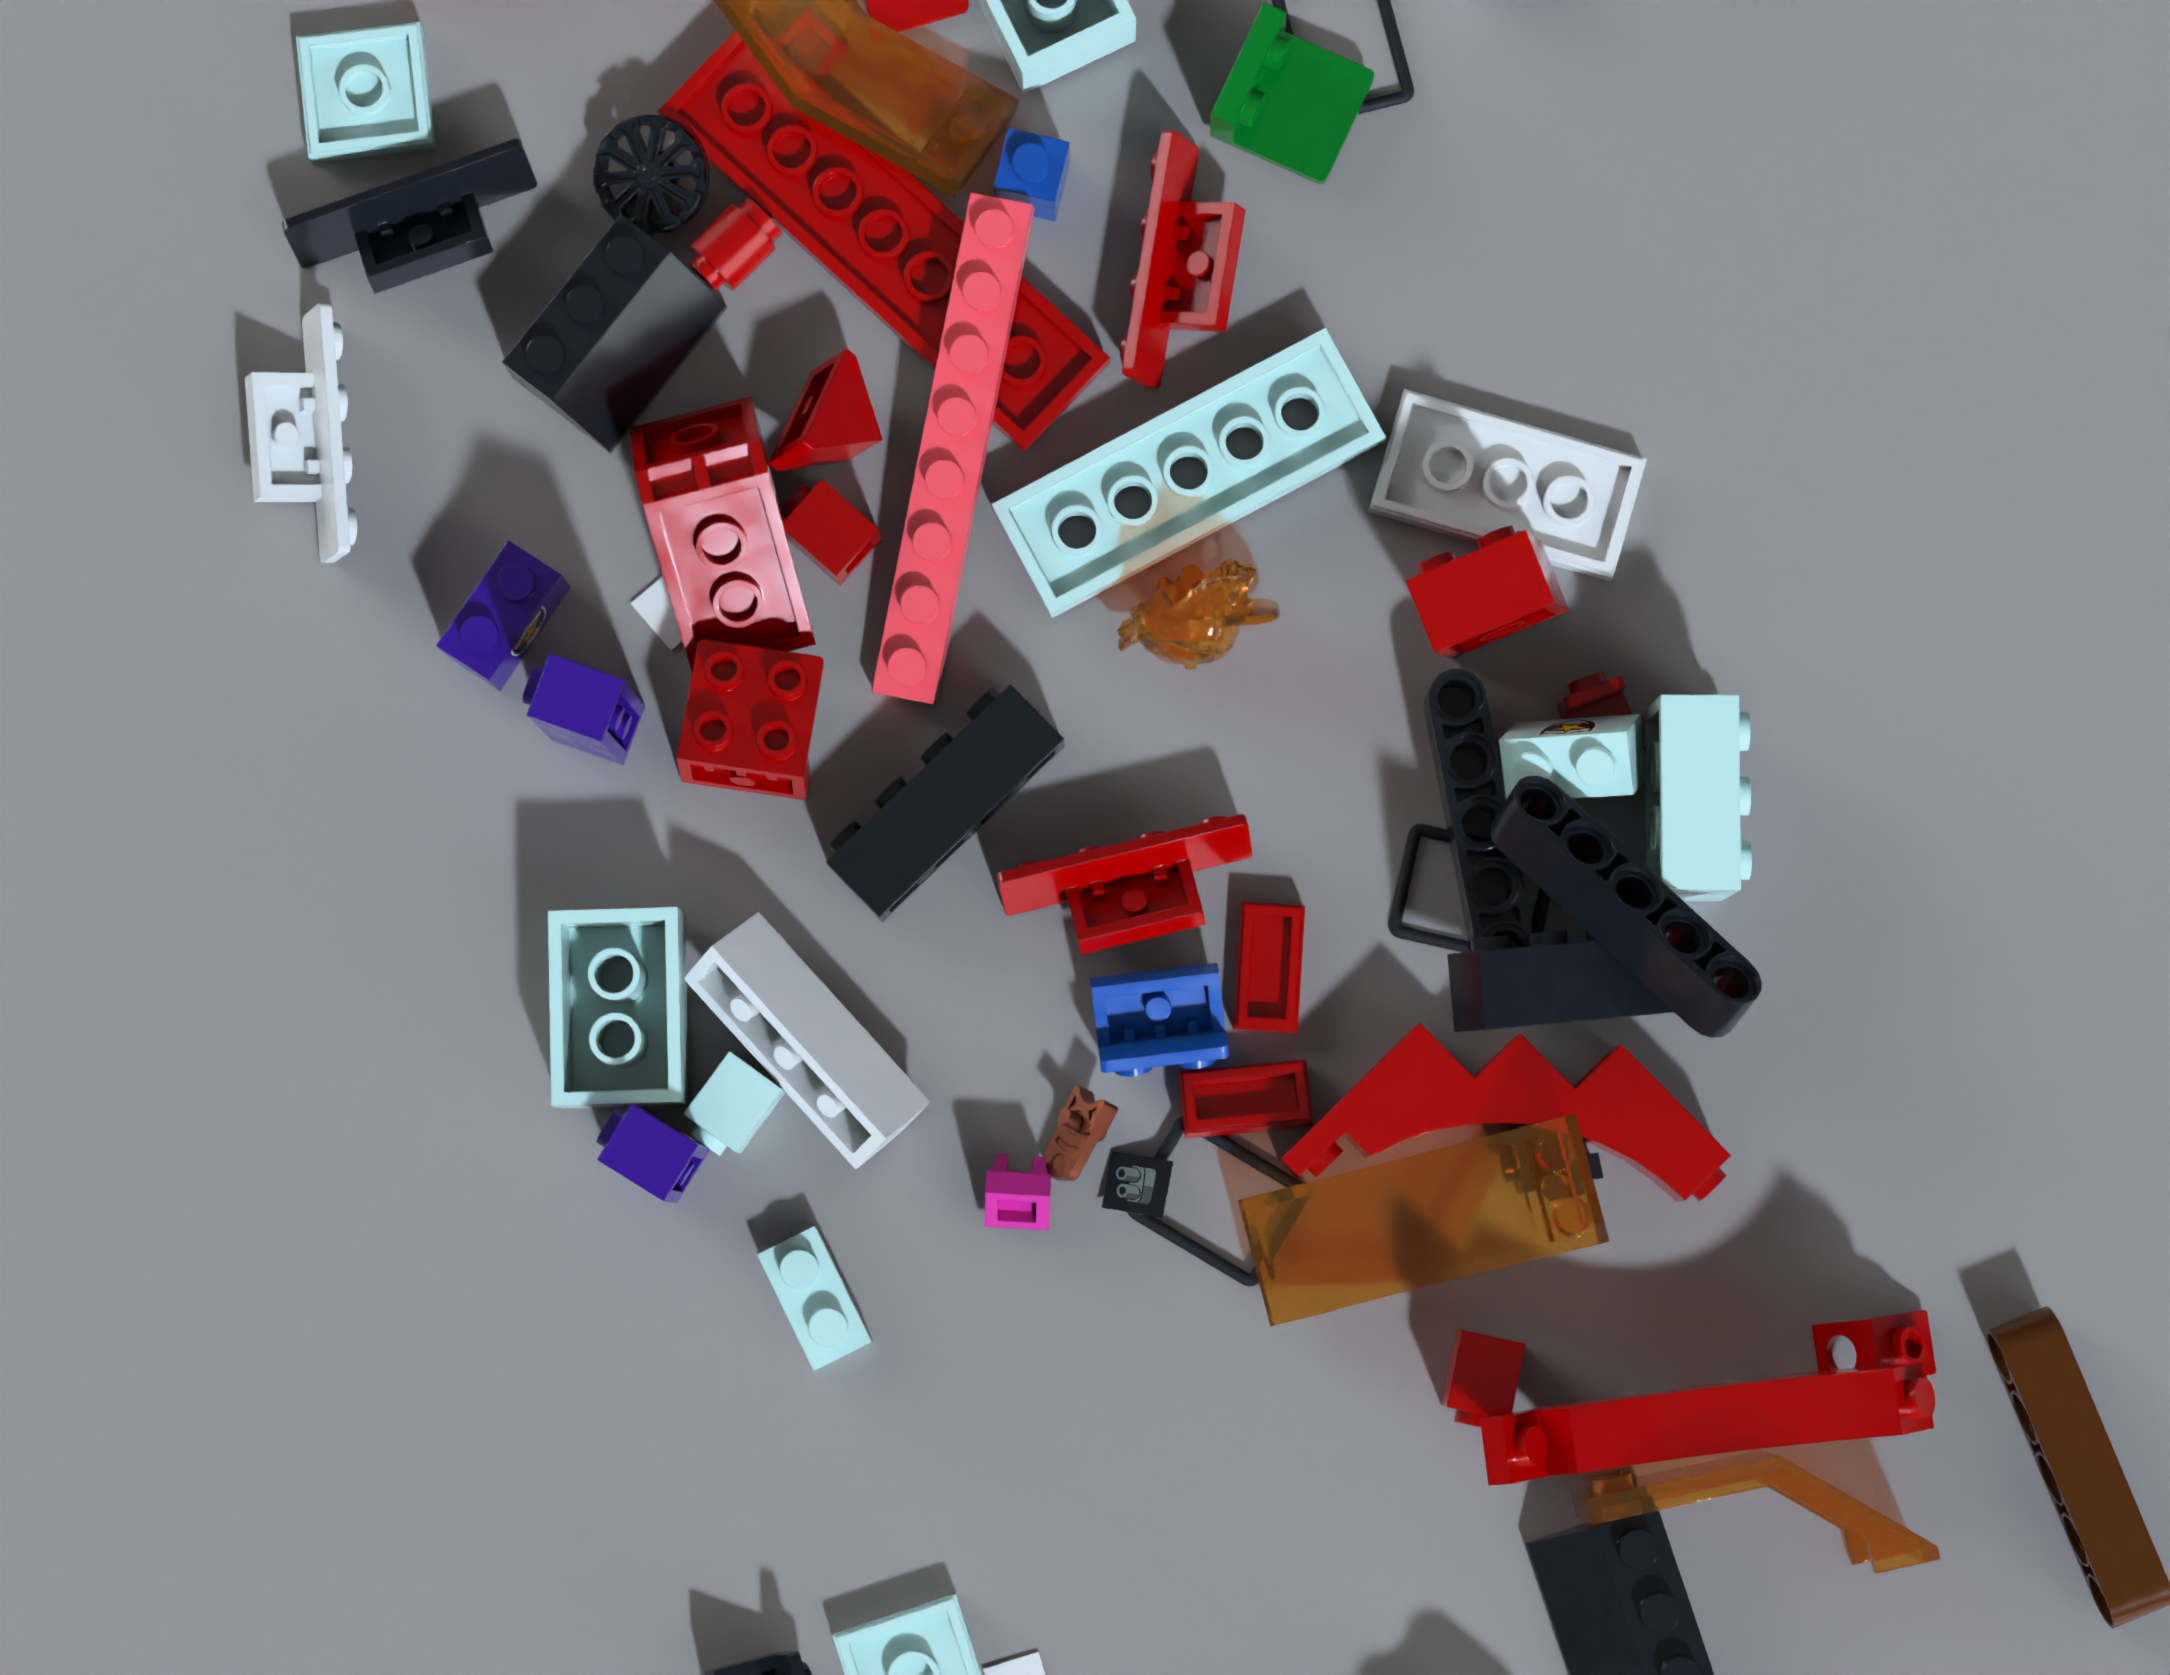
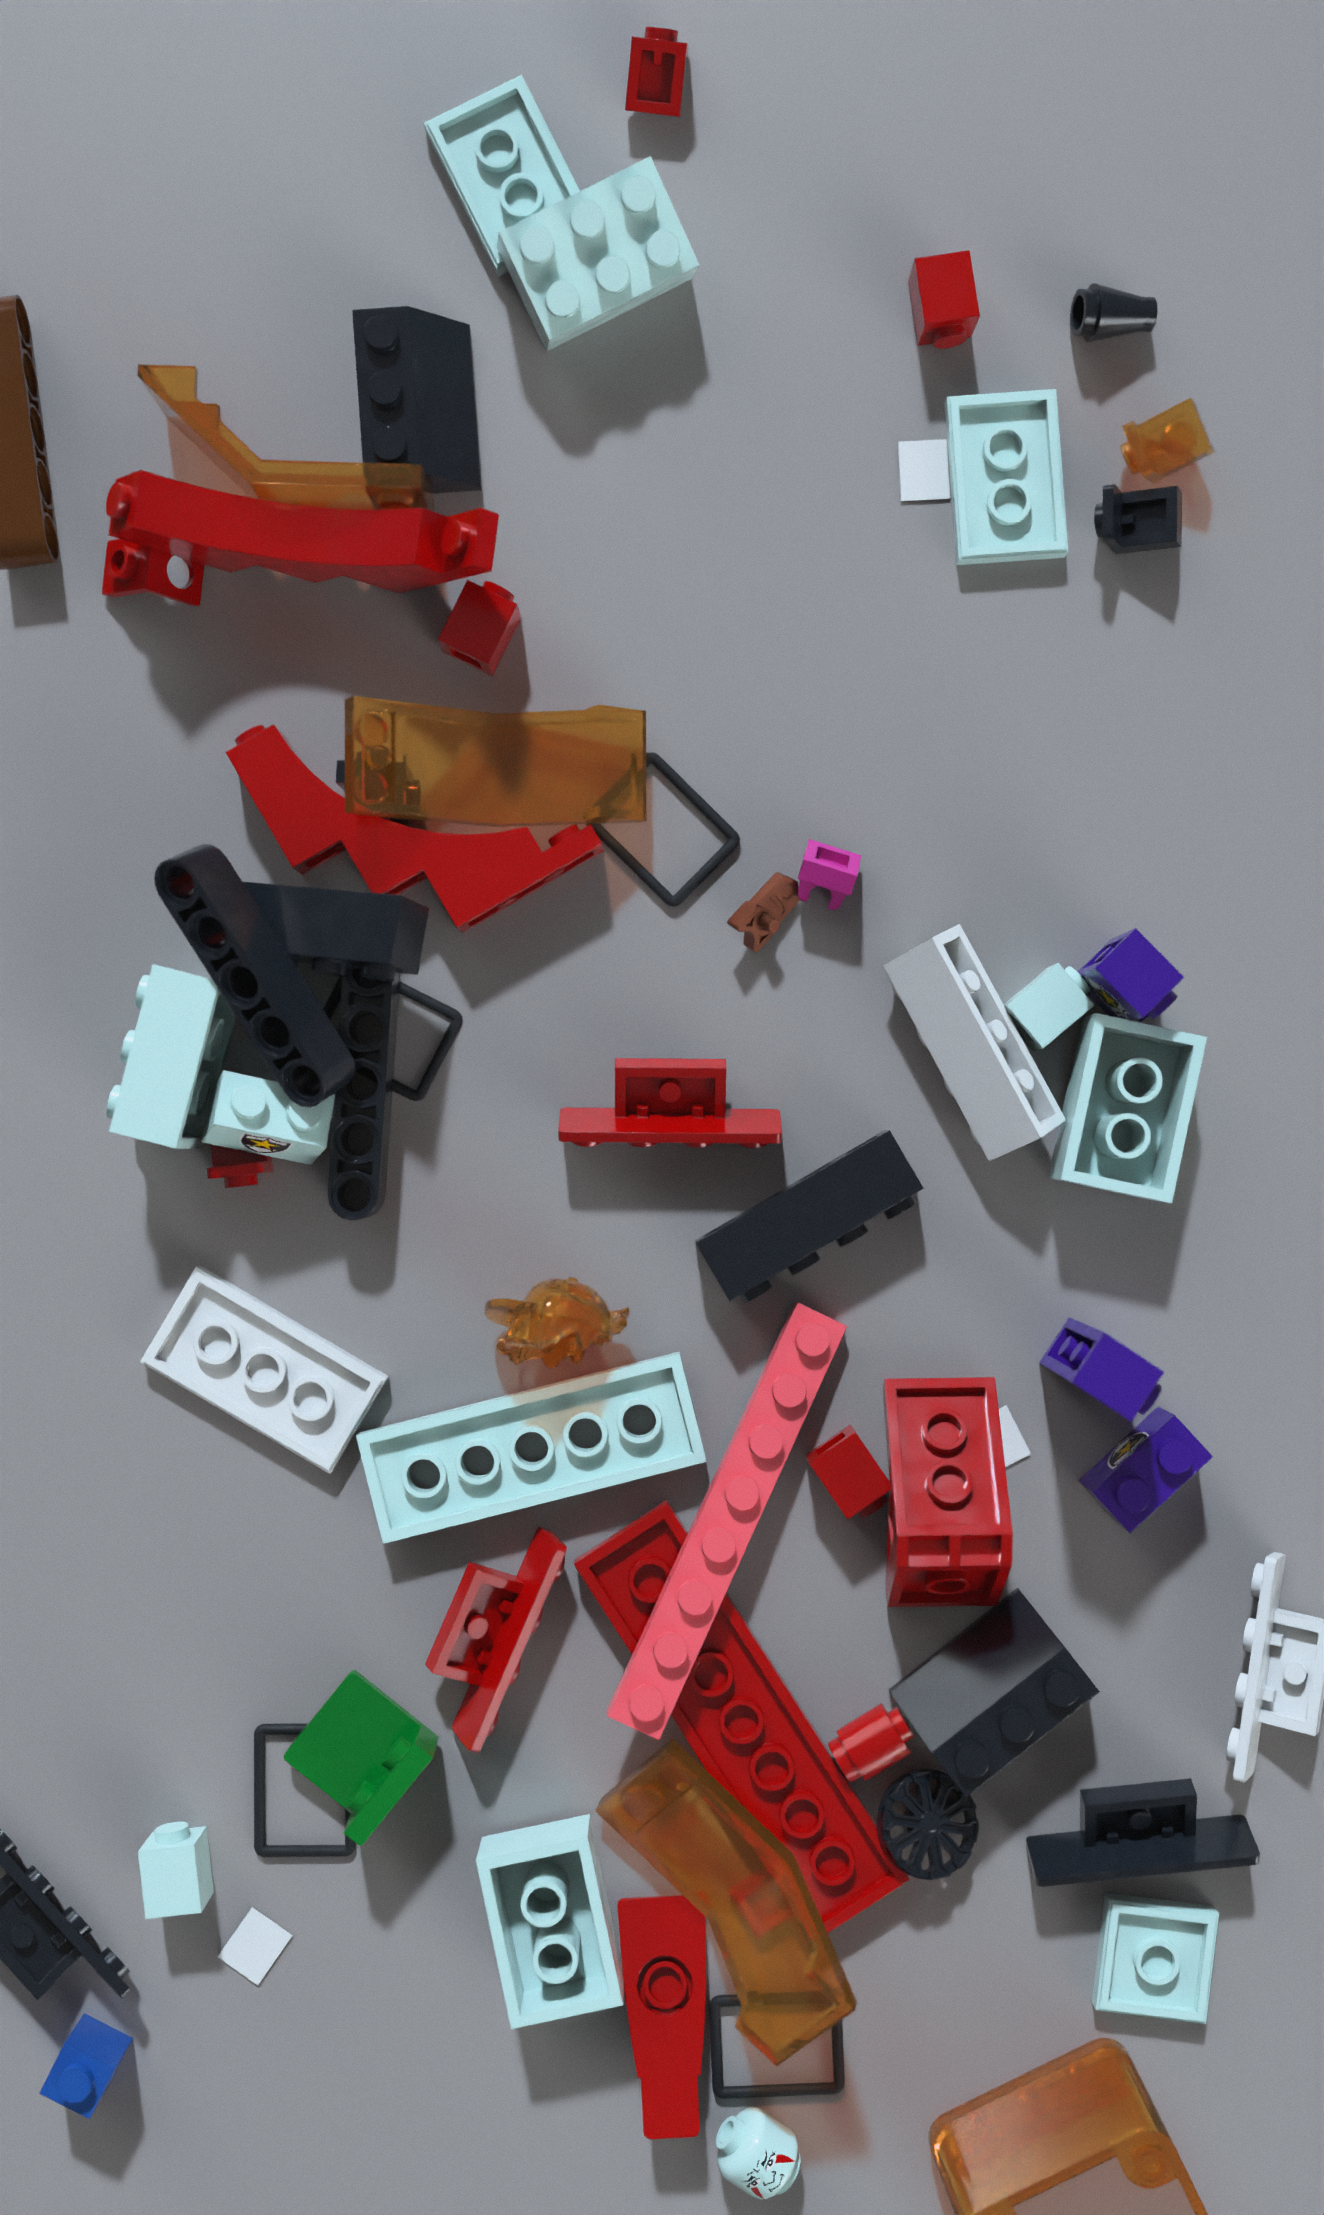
camera: 165 degrees left, 5 degrees up
(750, 719) = (957, 1328): red bracket -> none
(814, 1298) = (1015, 831): light aqua plate -> none
(829, 419) = (826, 1570): red slope -> none
(1033, 171) = (599, 1744): blue brick -> none
(1137, 1184) = (725, 858): black sticker -> none
(1159, 1019) = (673, 987): blue bracket -> none
(1245, 1099) = (618, 905): red tile -> none
(1269, 967) = (570, 1010): red tile -> none
(1486, 593) = (304, 1277): red brick -> none

